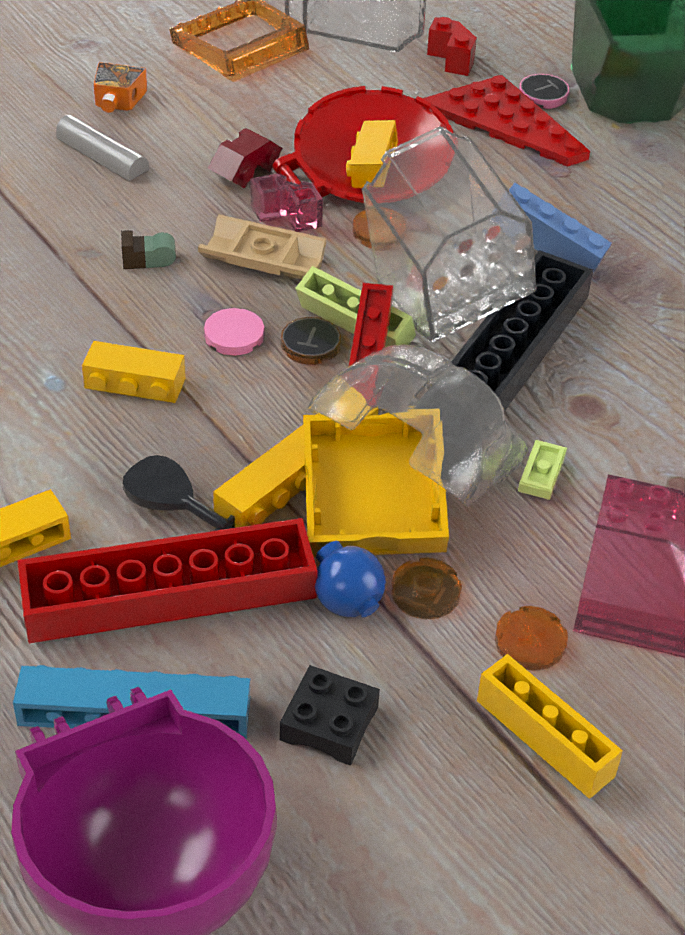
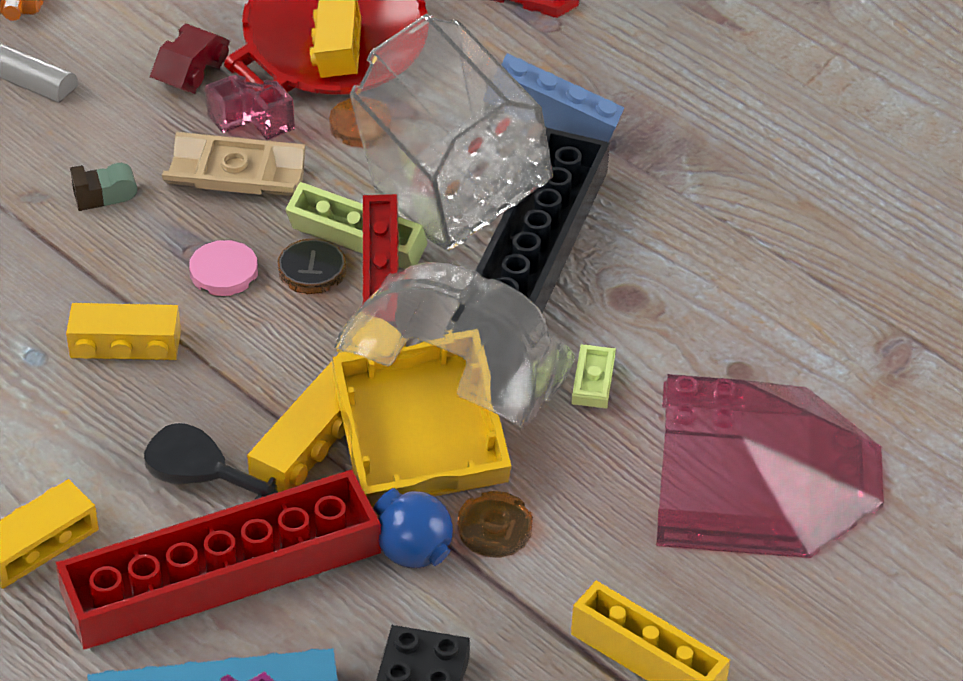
camera: 10 degrees left, 0 degrees up
(531, 637) = (615, 558): clear orange tile -> none

